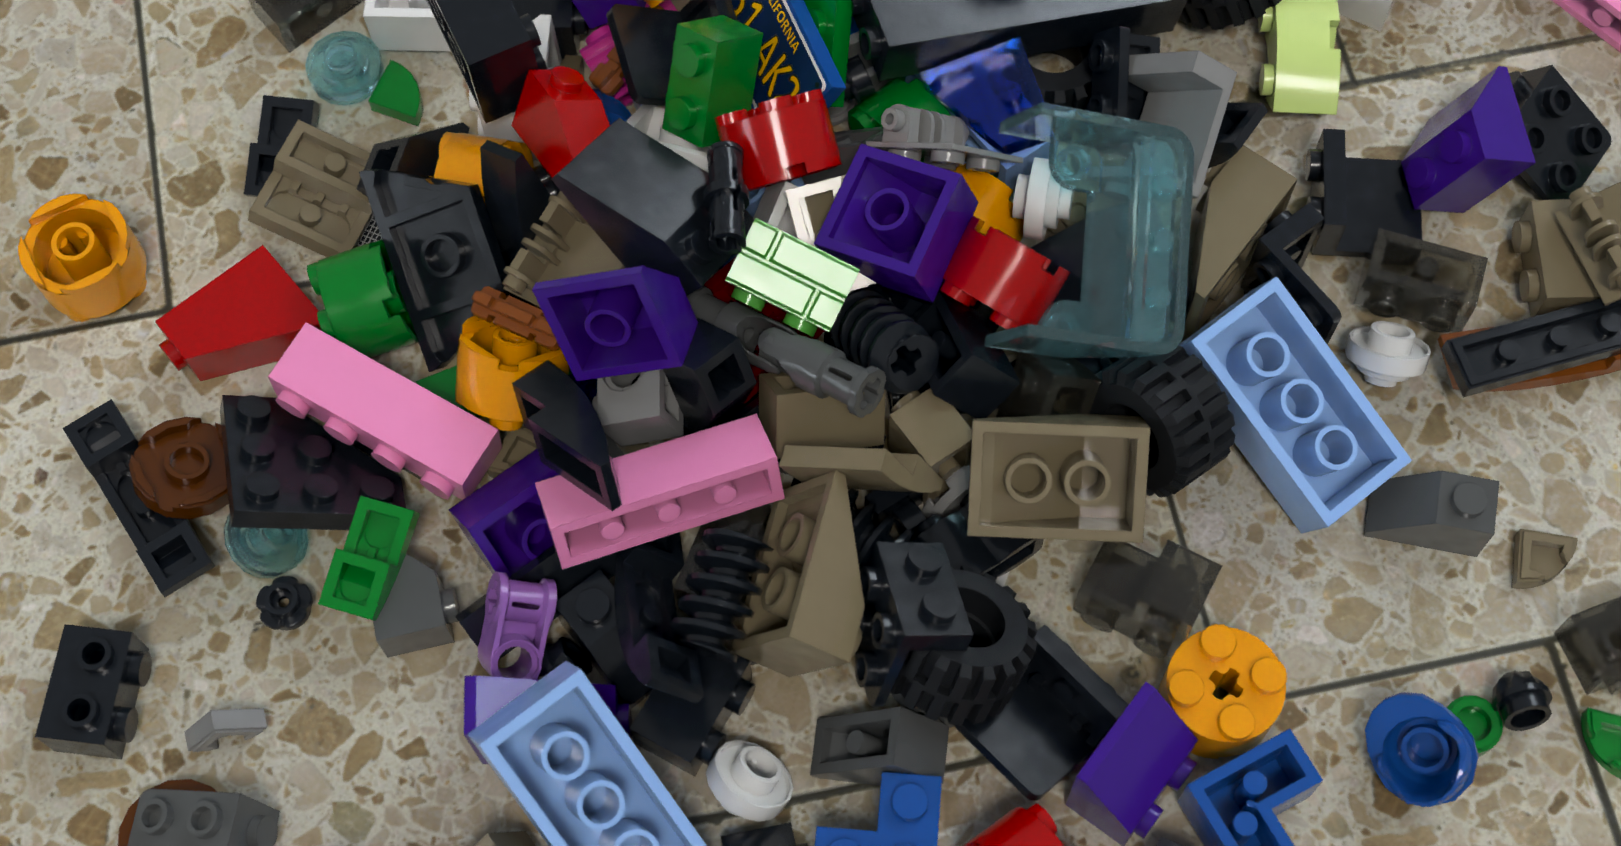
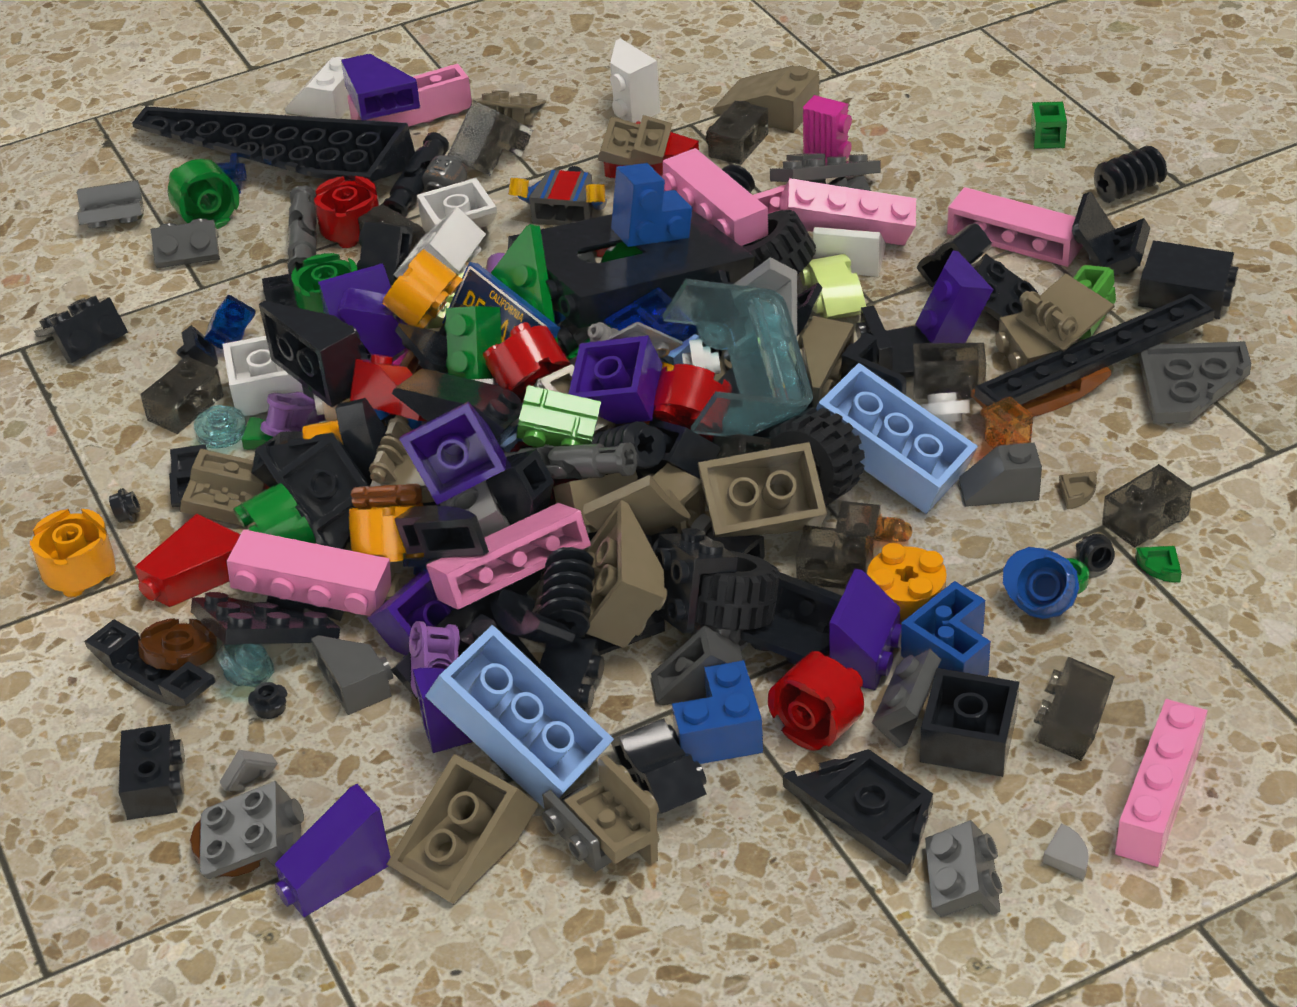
camera: 15 degrees left, 25 degrees down
(178, 182) = (124, 505): none -> black plate
(370, 560) = (324, 642): green slope -> none
(433, 85) = (289, 413): none -> medium lavender piece
(726, 198) = (505, 380): black pin -> none
(749, 781) = (617, 706): white plate -> none
(1234, 555) = (894, 529): none -> clear orange arm
(1462, 429) = (1002, 428): none -> clear orange brick
(1505, 39) = (970, 243): none -> black brick

